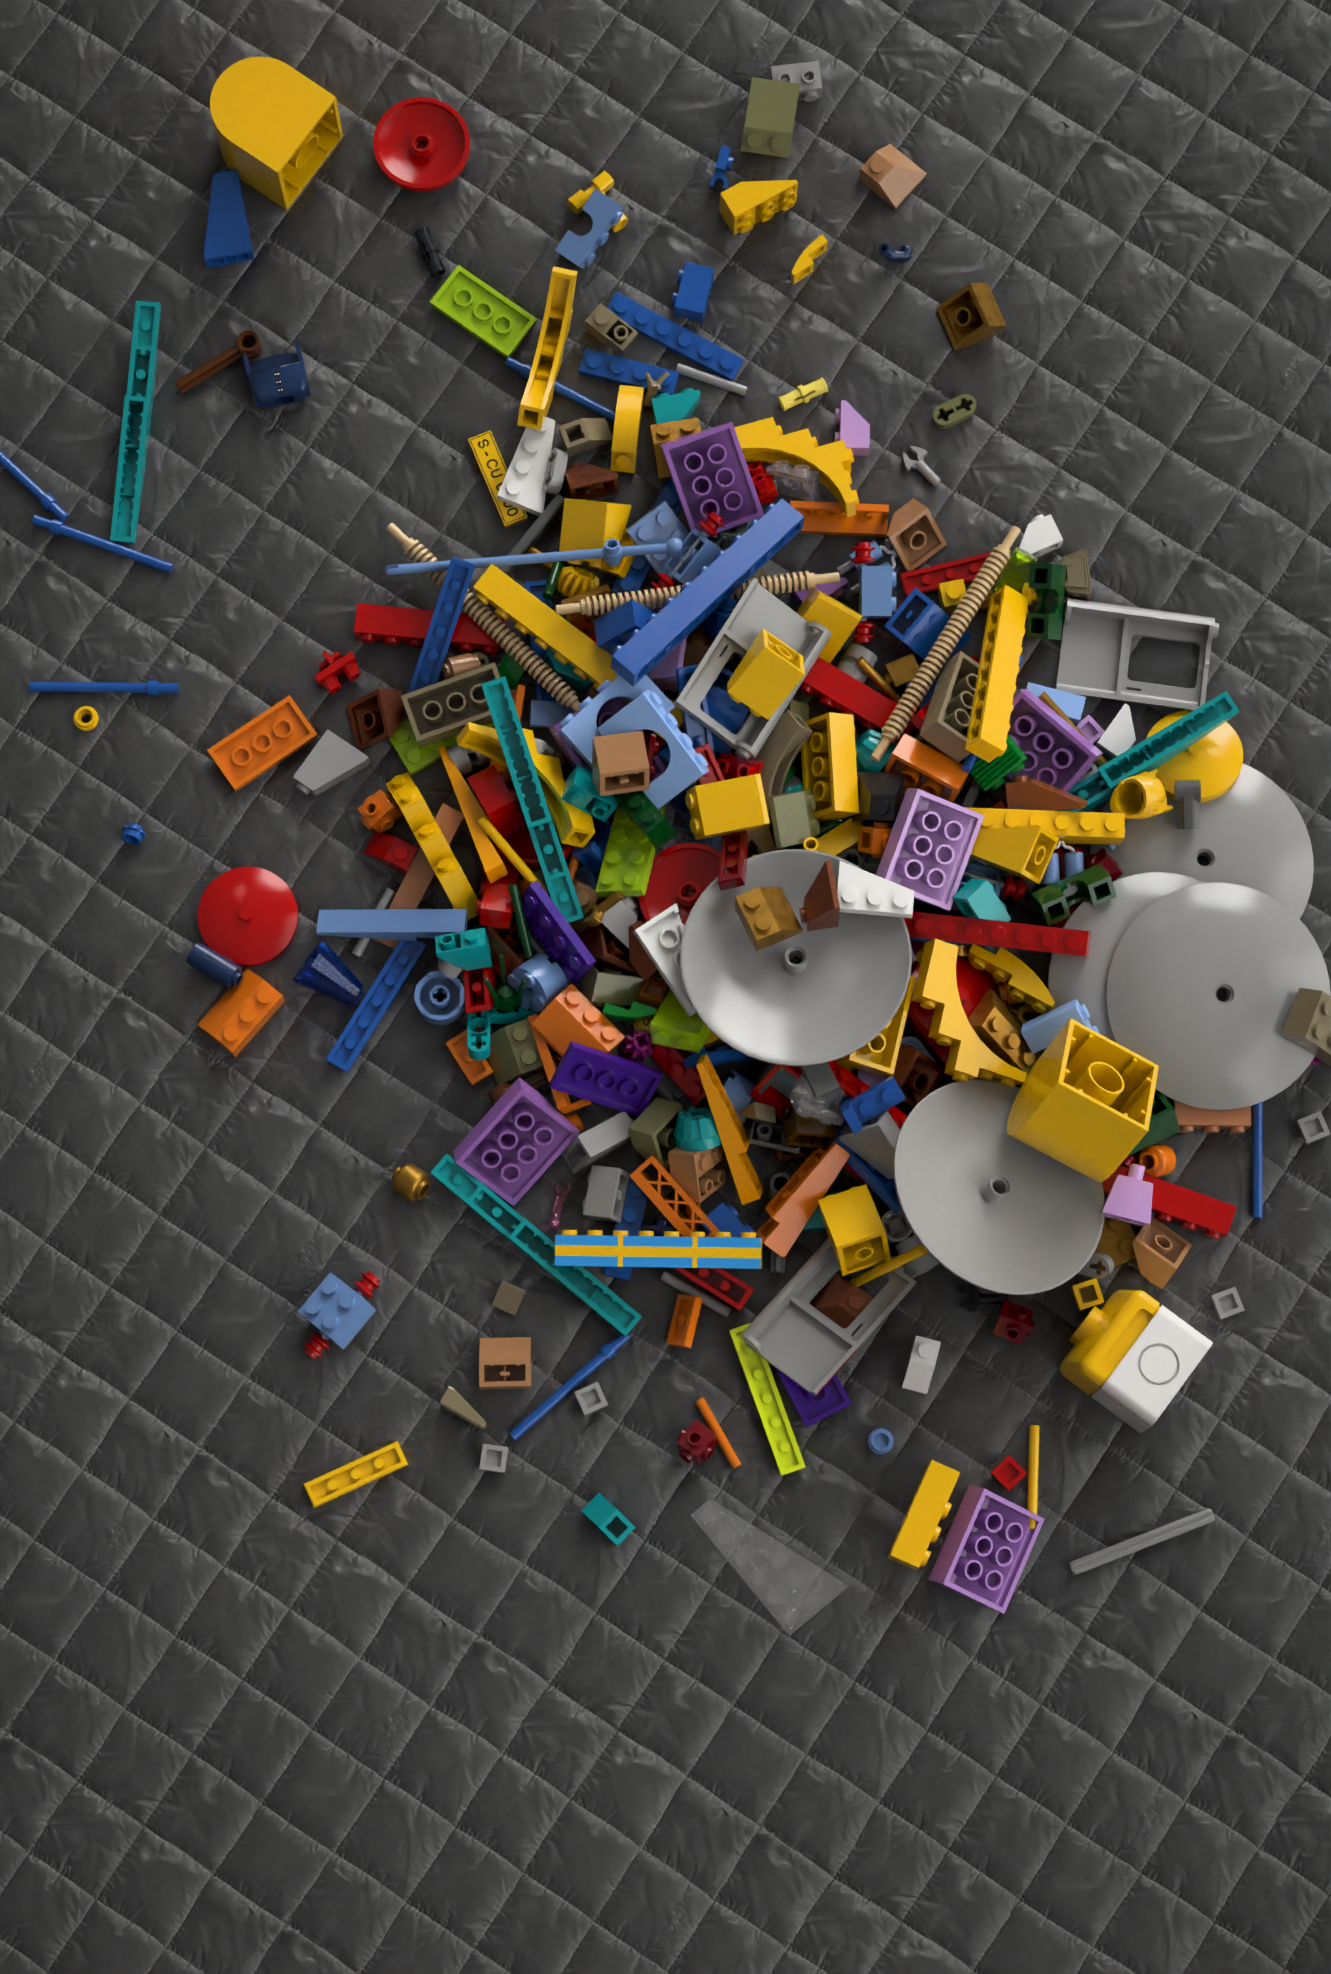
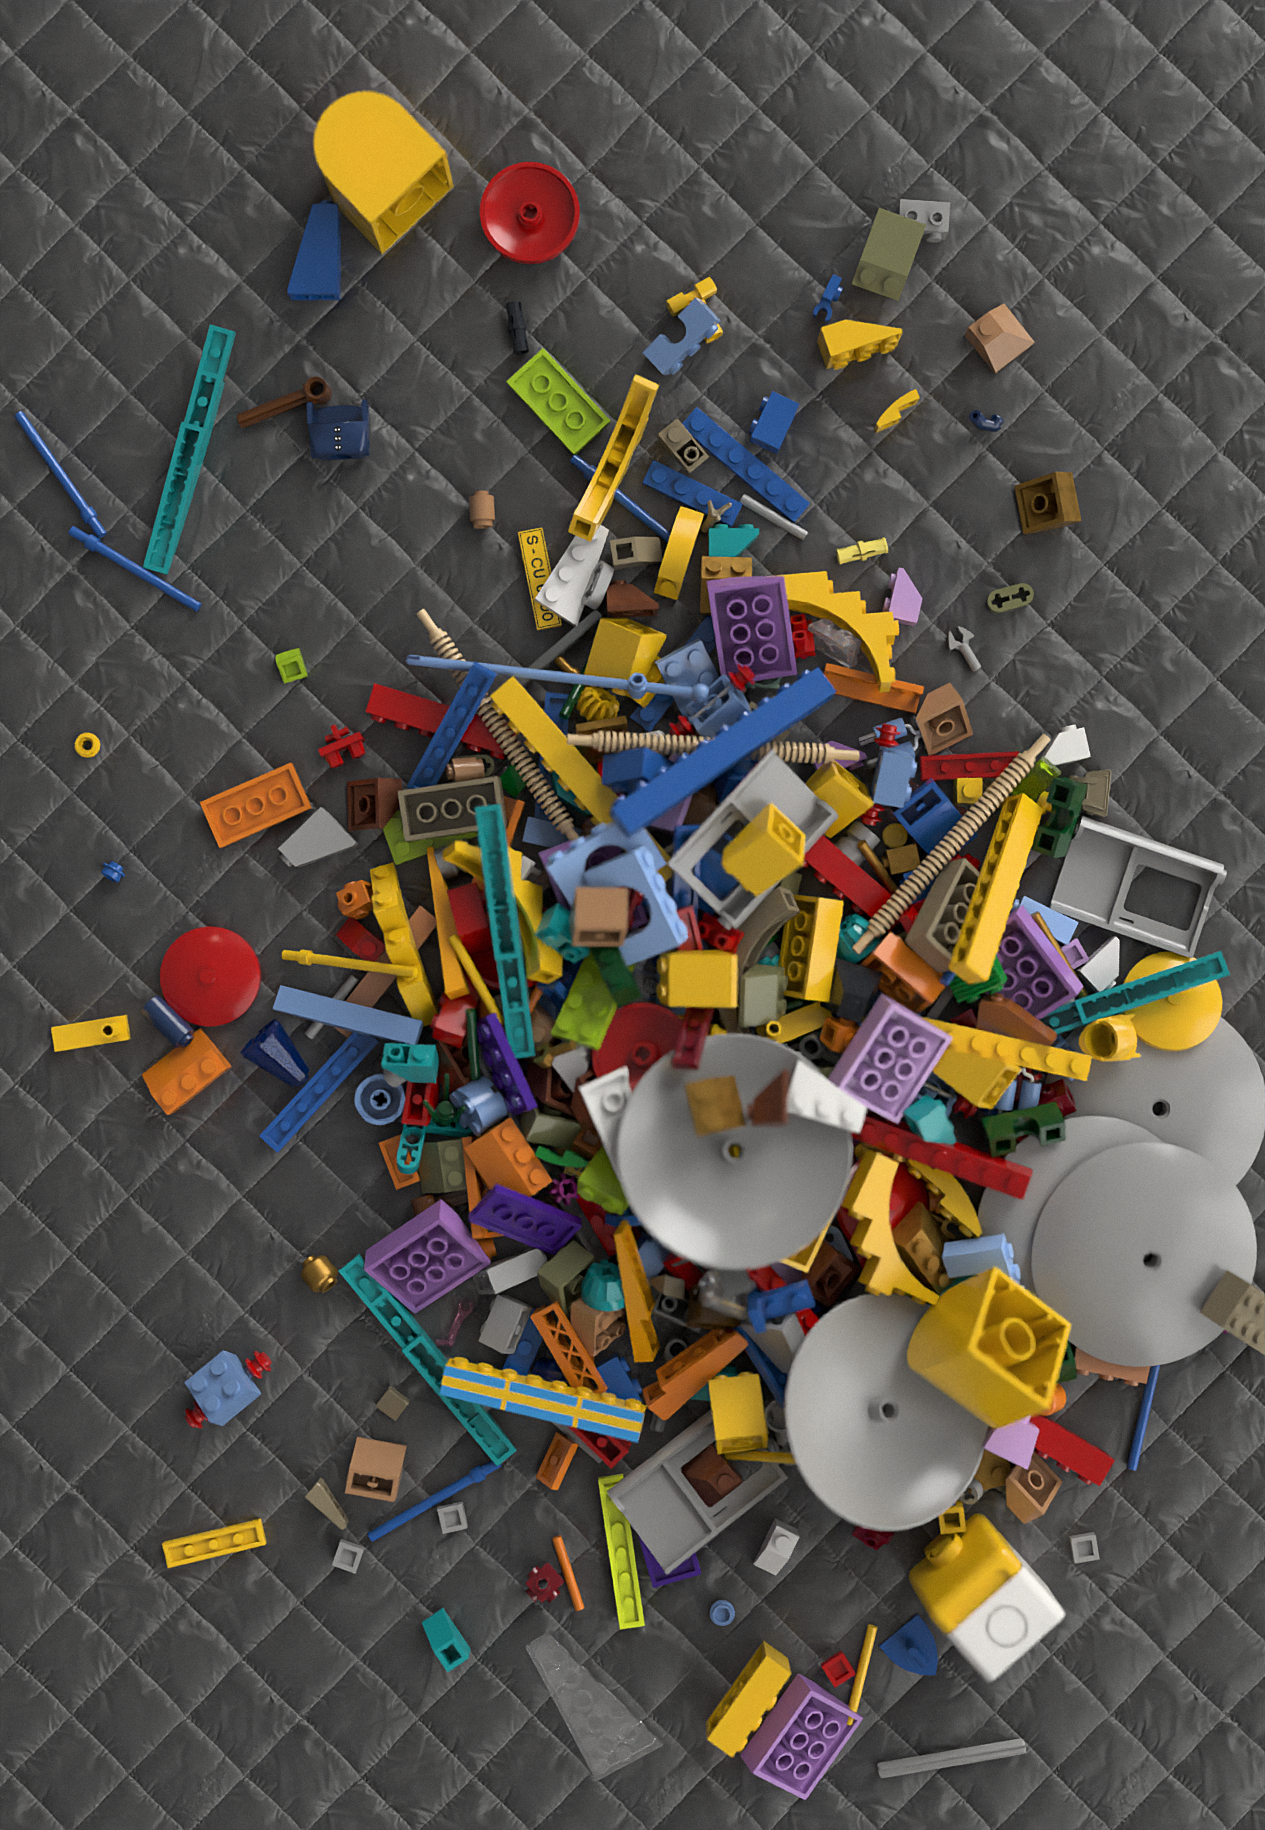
camera: 15 degrees right, 10 degrees up
(139, 994) = (90, 1033): none -> yellow piece
(152, 687) = (157, 726): blue bar -> none
(271, 606) = (291, 665): none -> lime slope
(341, 877) = (307, 957): none -> yellow bar
(429, 424) = (482, 510): none -> medium nougat brick
(890, 652) = (894, 835): none -> yellow tile
(1079, 1440) = (913, 1648): none -> blue shield
(1187, 799) = (1157, 1049): dark grey piece -> none
(1313, 1127) = (1205, 1393): light grey plate -> none

